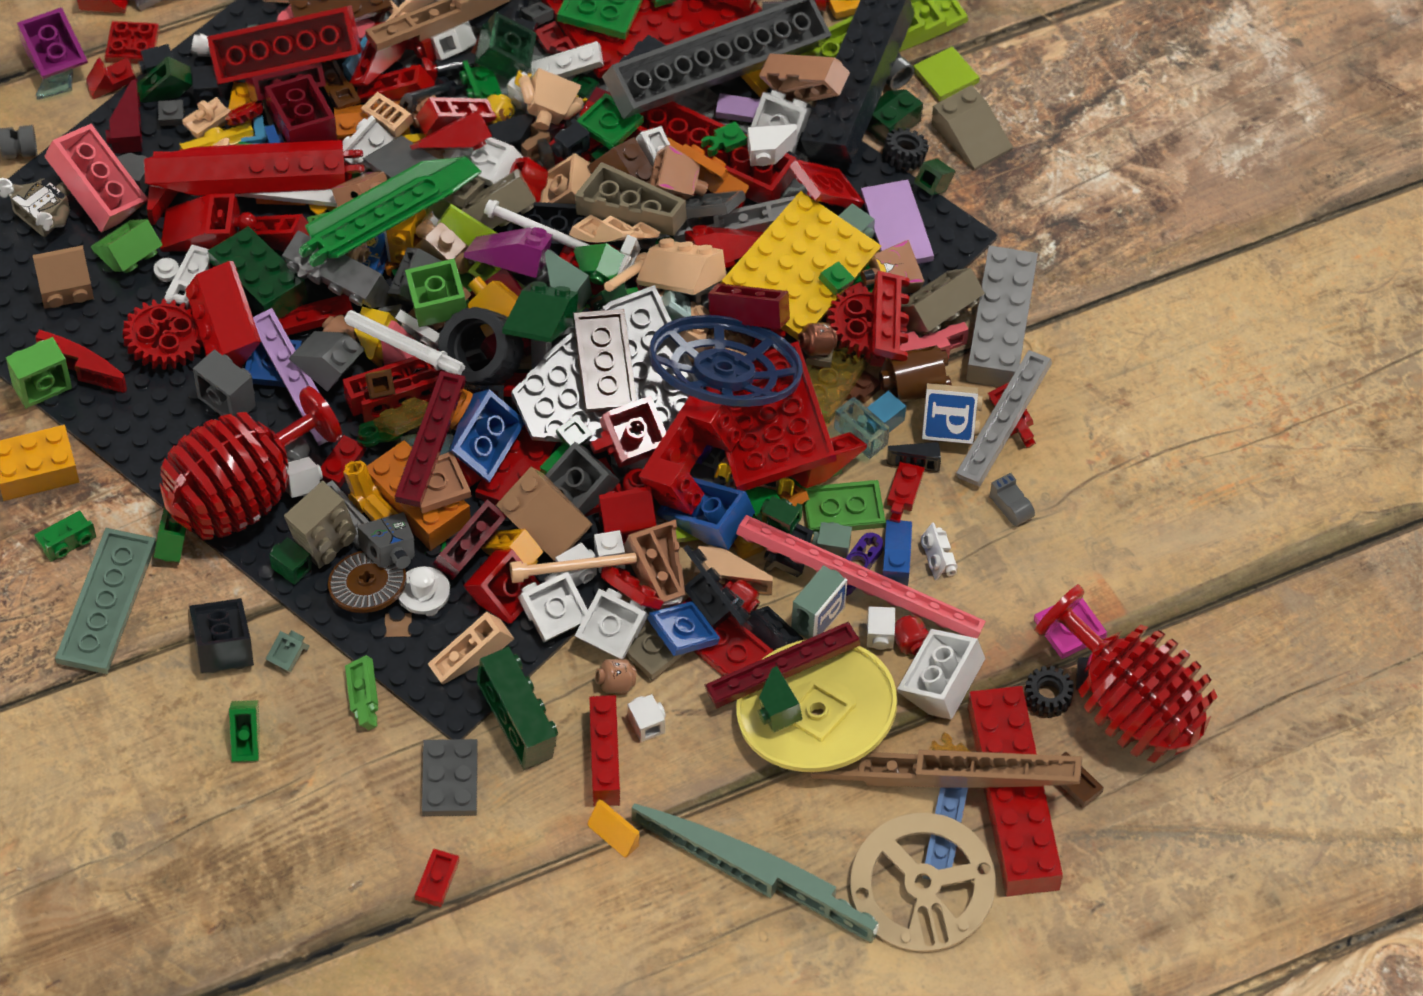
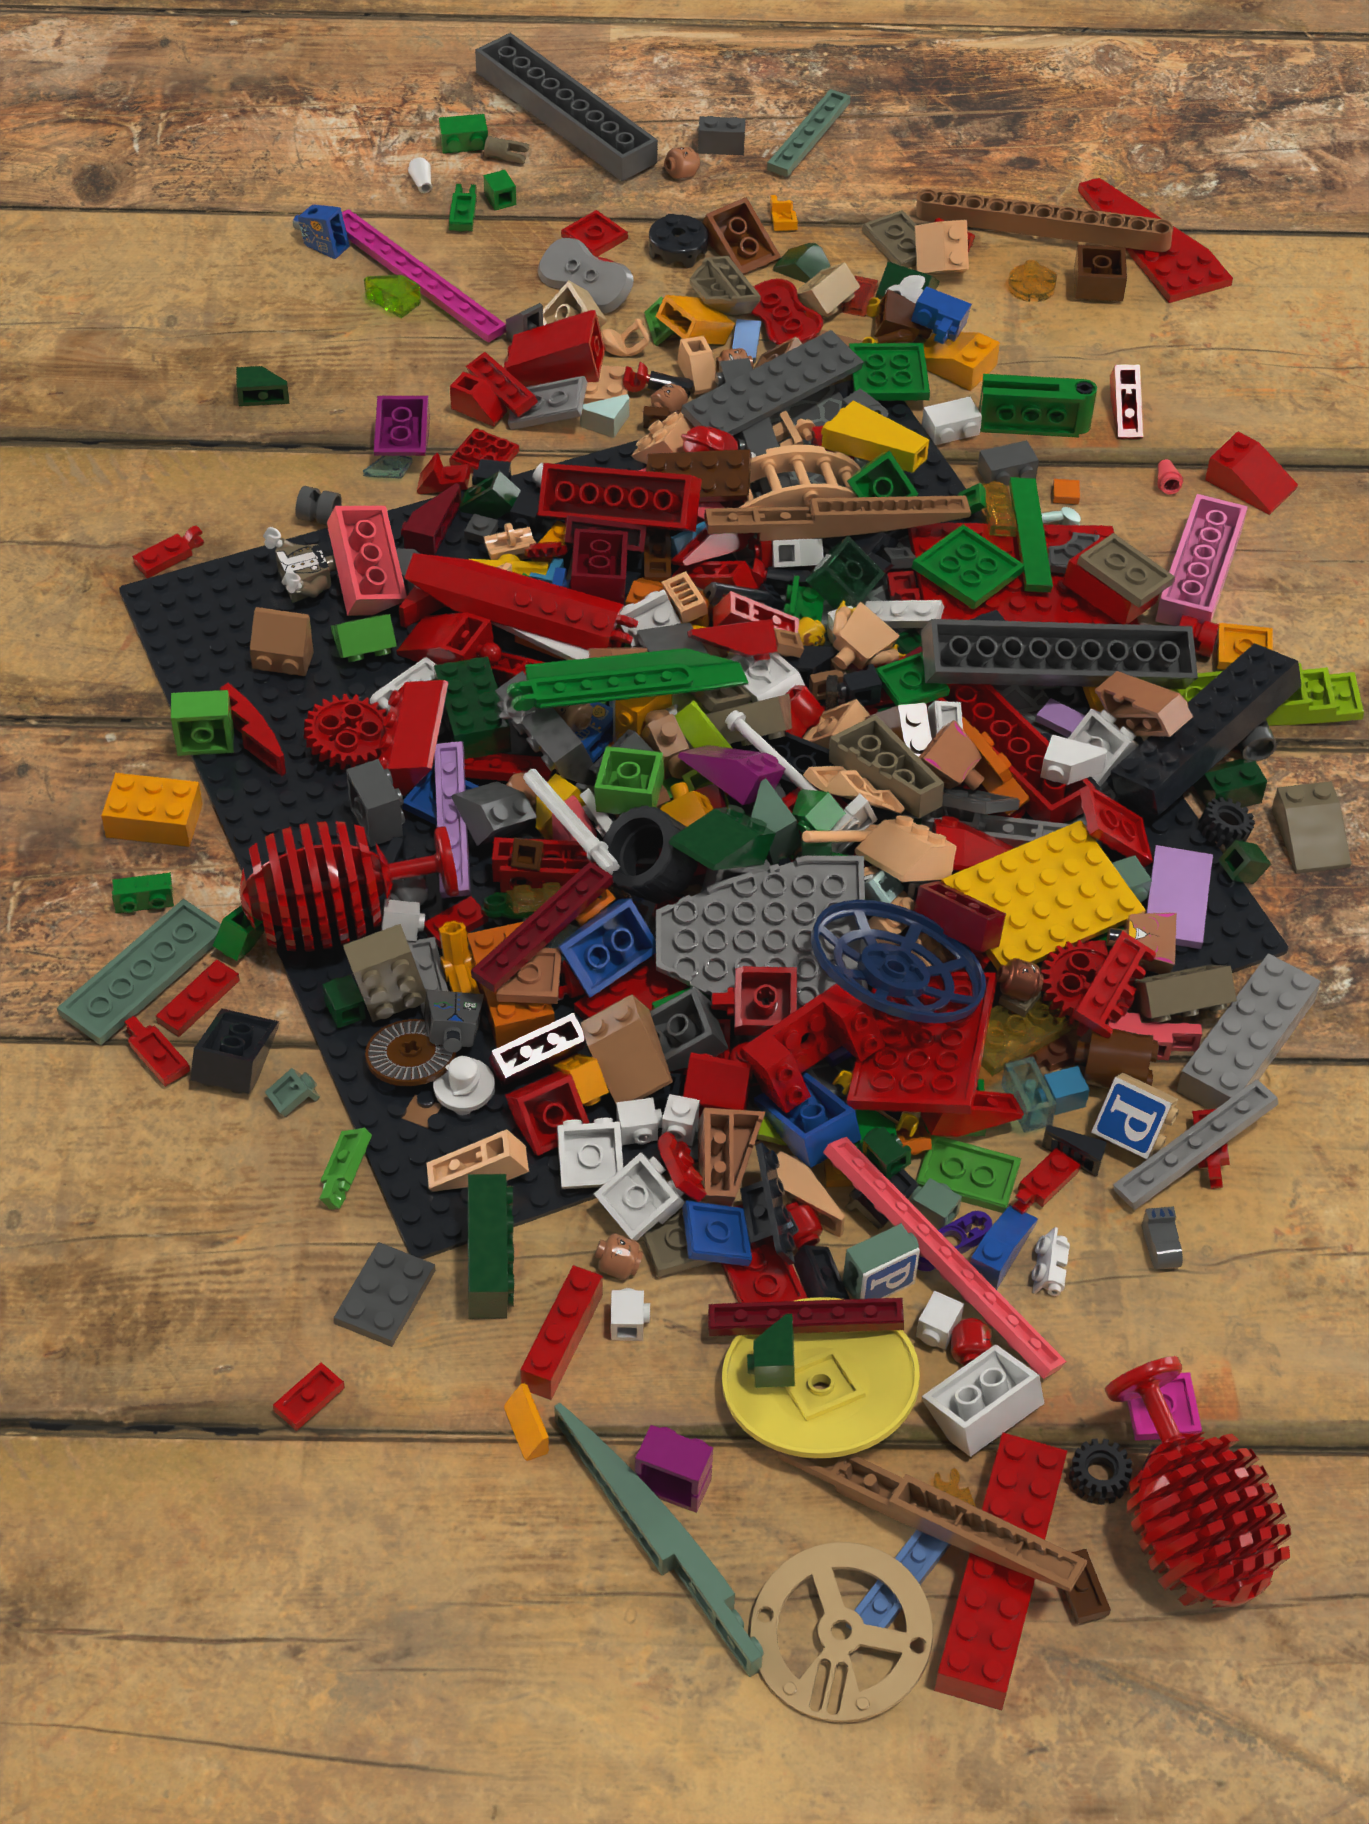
camera: 25 degrees right, 5 degrees down
(156, 661) = (156, 1051): none -> red hinge
(163, 605) = (197, 998): none -> red plate
(166, 269) = (388, 671): white plate -> none
(244, 730) = (200, 1156): green slope -> none
(495, 124) = (788, 643): none -> medium nougat plate
(521, 571) = (569, 1102): light nougat piece -> none
(574, 431) = (702, 976): tile -> none
(604, 359) = (769, 912): plate -> none
(727, 137) = (1028, 740): green plate -> none
(746, 814) = (675, 1467): none -> magenta piece
(836, 278) = (1073, 923): green plate -> none
(946, 73) = (1312, 762): lime tile -> none

